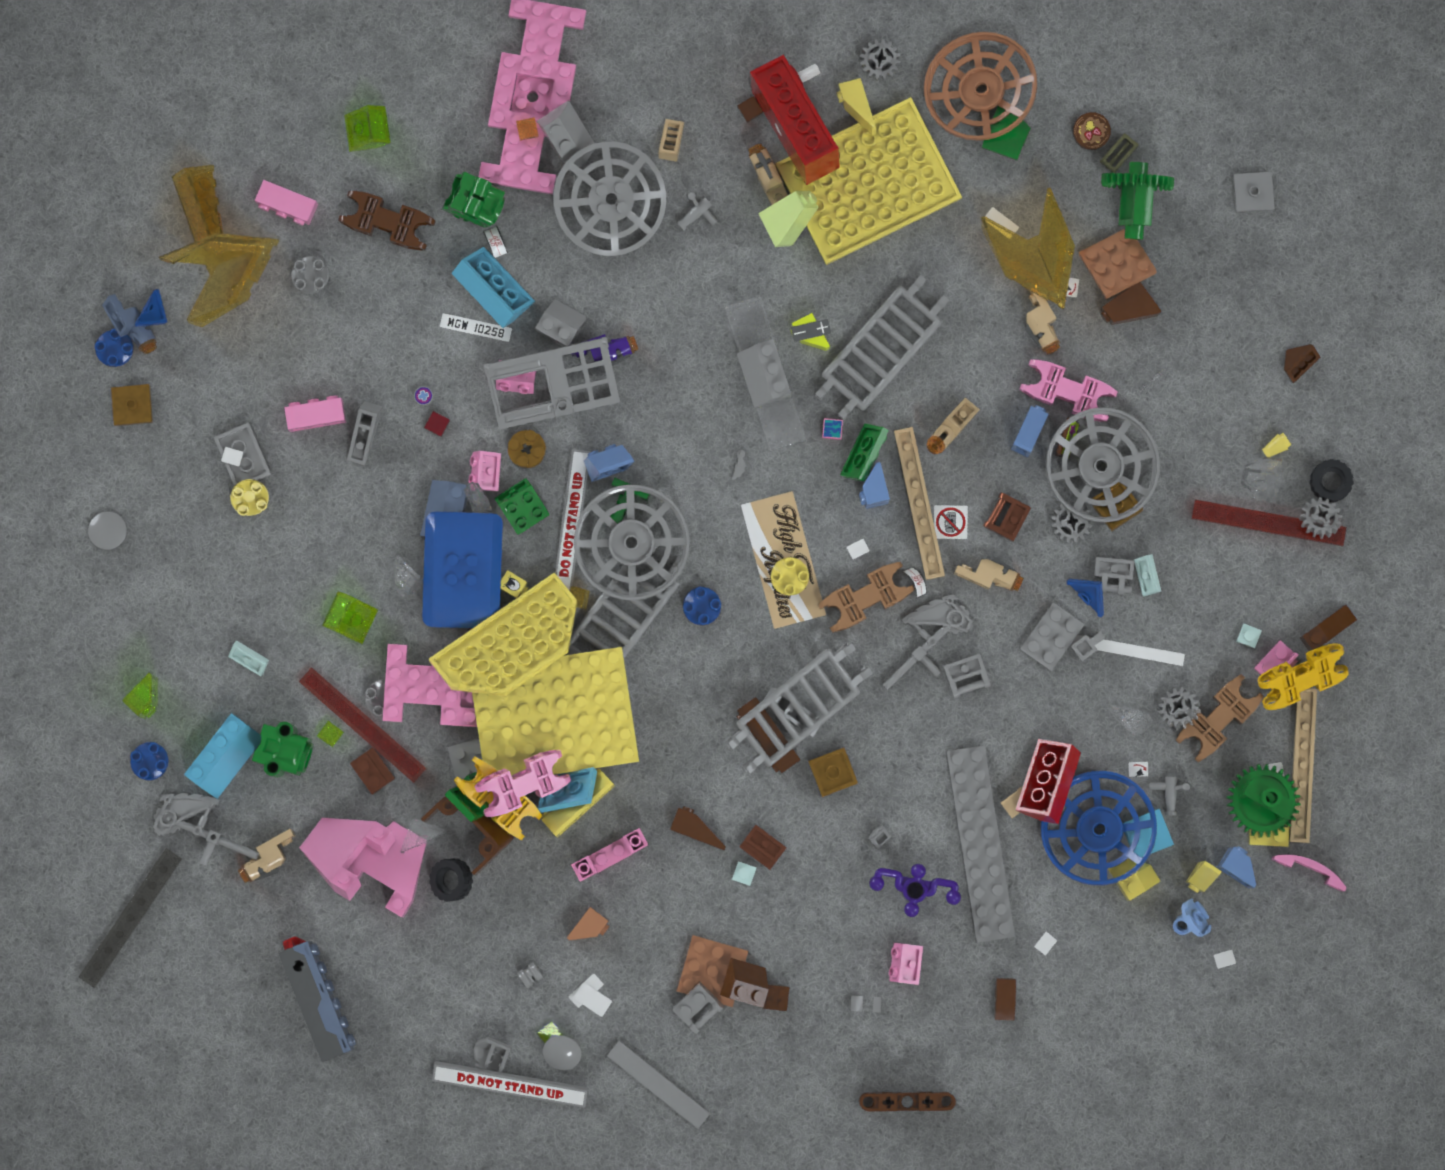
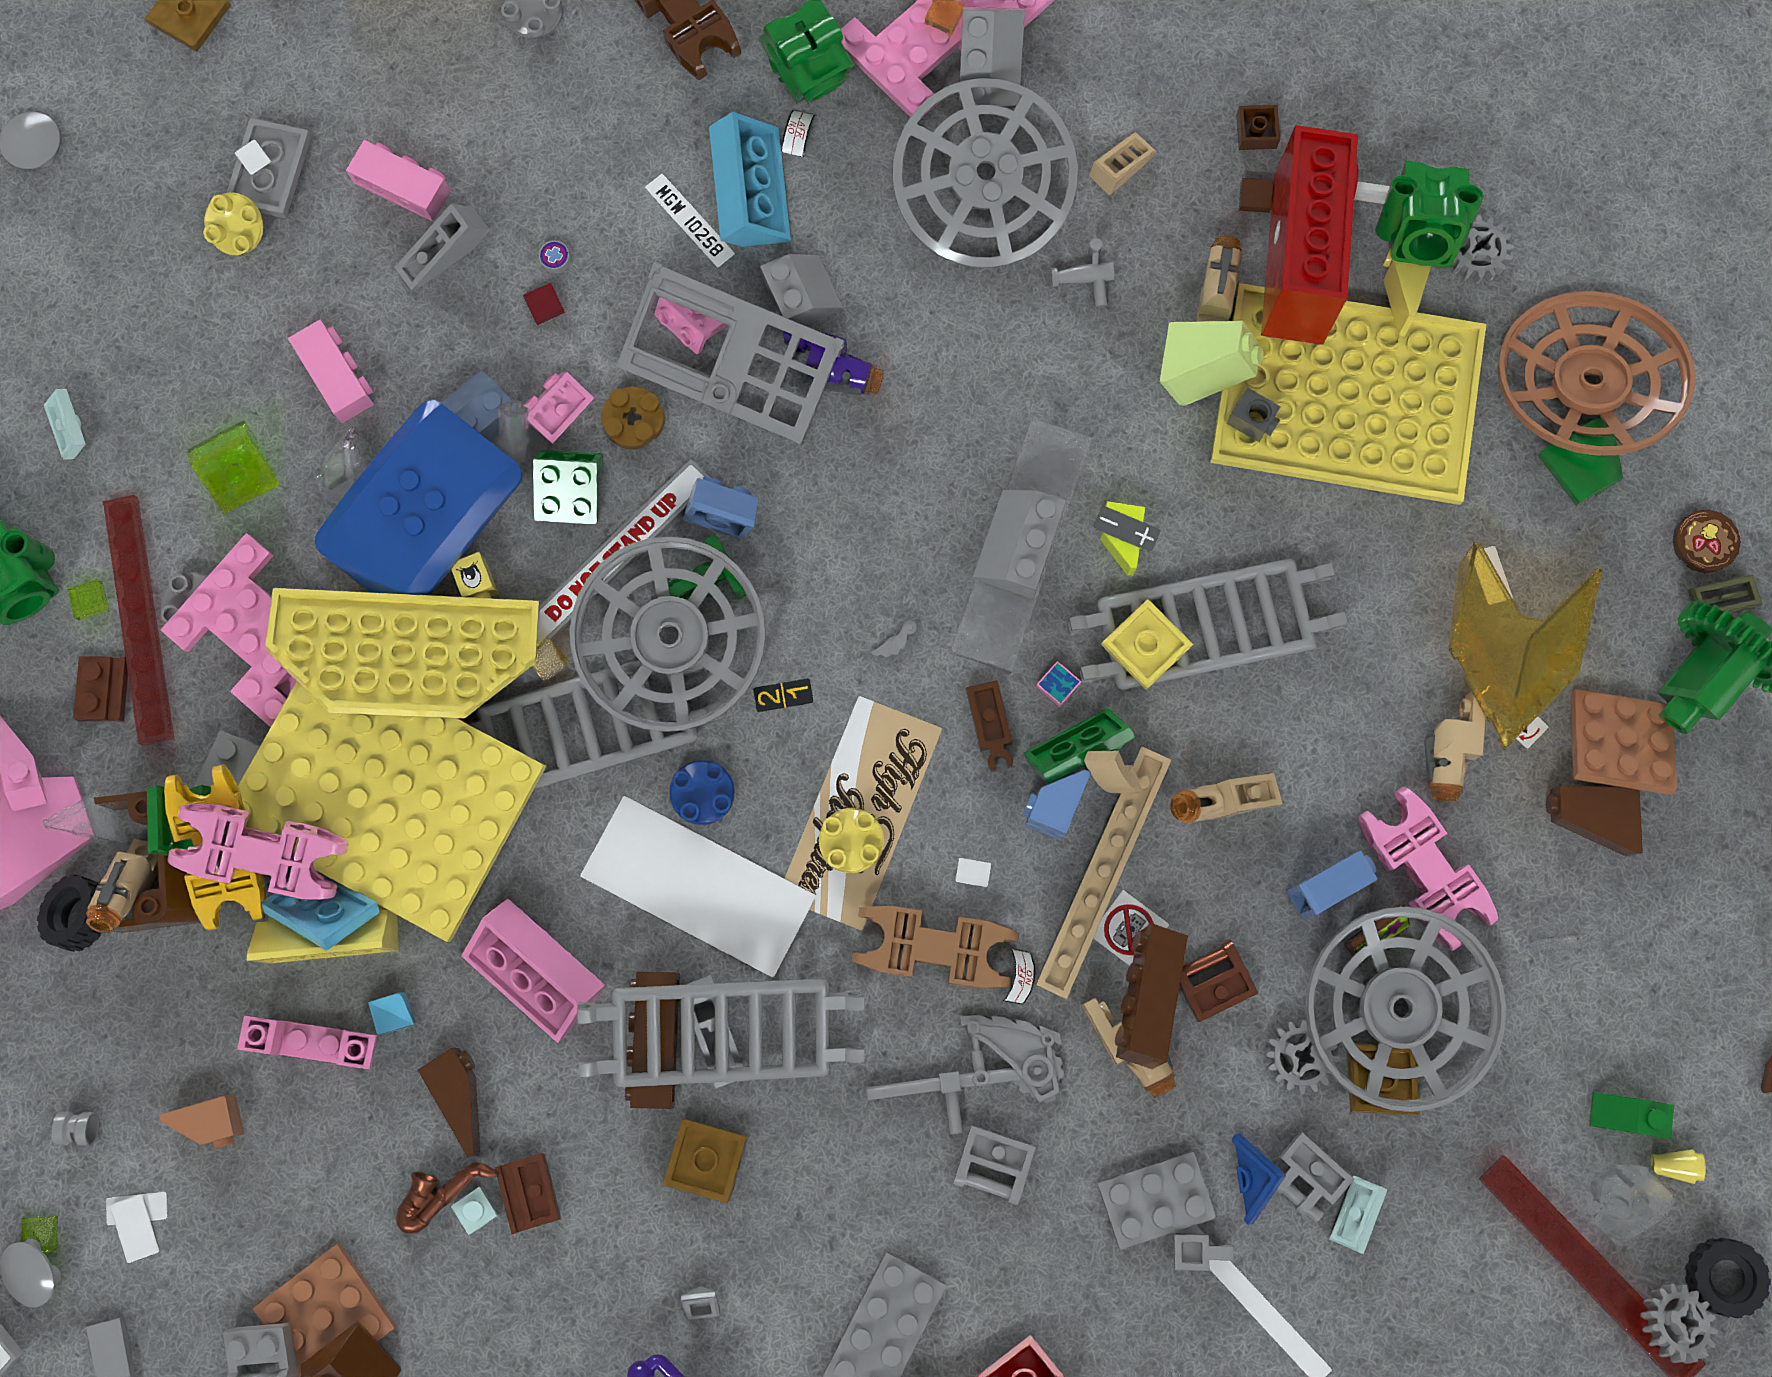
camera: 35 degrees right, 5 degrees down
(360, 534) = (332, 370): none -> bright pink brick
(467, 847) = (124, 881): none -> tan plate
(635, 815) = (391, 1013): none -> medium azure slope
(686, 747) = (531, 969): none -> bright pink slope
(704, 531) = (783, 695): none -> black sticker
(717, 888) = (422, 1204): none -> copper piece
(726, 73) = (1258, 127): none -> reddish brown piece
(732, 651) = (698, 886): none -> white sticker
(813, 471) = (990, 721): none -> reddish brown plate
(825, 234) = (1257, 403): none -> dark grey brick
(845, 66) = (1428, 214): none -> green piece
(861, 379) = (1147, 644): none -> light yellow tile
(889, 455) = (1111, 773): none -> tan slope
(982, 545) = (1151, 996): none -> reddish brown brick
(1239, 438) = (1631, 1115): none -> green slope

